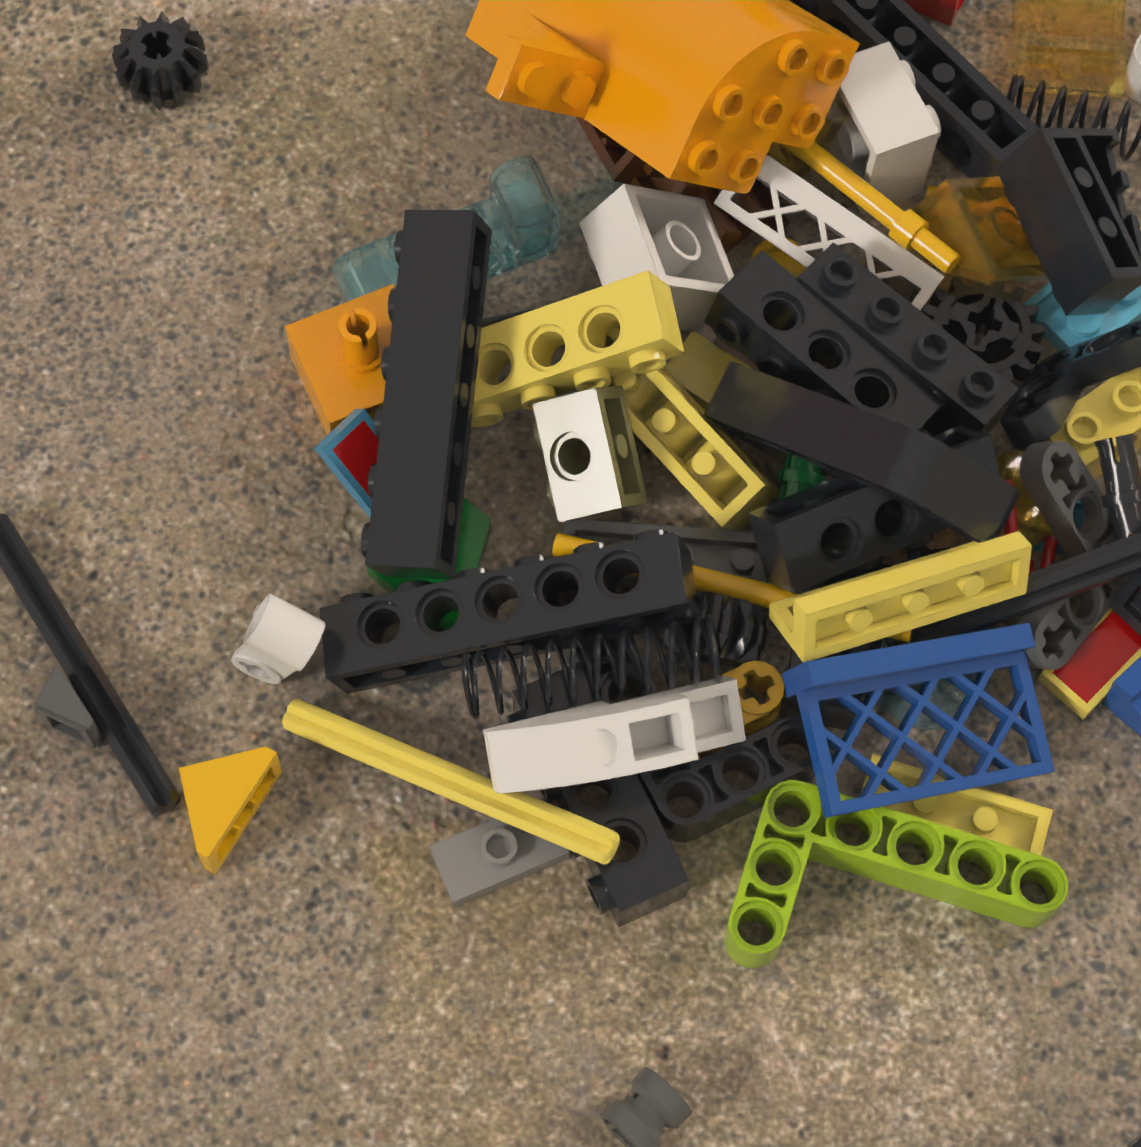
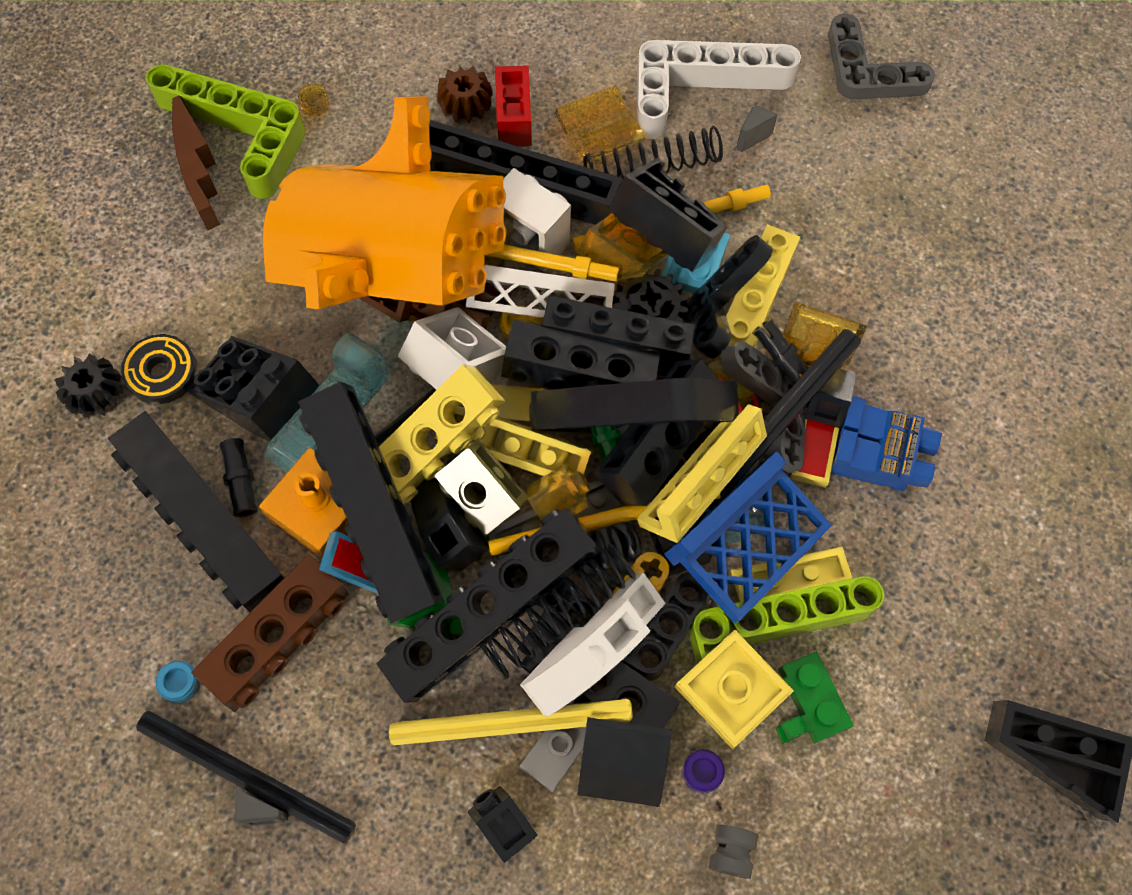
camera: 30 degrees left, 0 degrees up
(61, 499) = (177, 682): none -> dark azure tile
(182, 489) = (249, 637): none -> reddish brown brick
(206, 299) = (196, 510): none -> black brick
(225, 797) = (382, 810): yellow slope -> none
(257, 57) = (149, 352): none -> black tile
(277, 641) = (363, 695): white piece -> none
(283, 279) = (238, 477): none -> black pin
(363, 903) = (501, 822): none -> black bracket
(368, 167) = (253, 386): none -> black slope
(510, 488) = (445, 529): none -> black slope
(566, 913) = (624, 761): none -> black slope
(671, 994) = (703, 771): none -> dark purple tile
(693, 511) = (559, 491): none -> clear yellow brick
(771, 902) = (733, 689): none -> light yellow tile
(884, 988) = (815, 699): none -> green plate

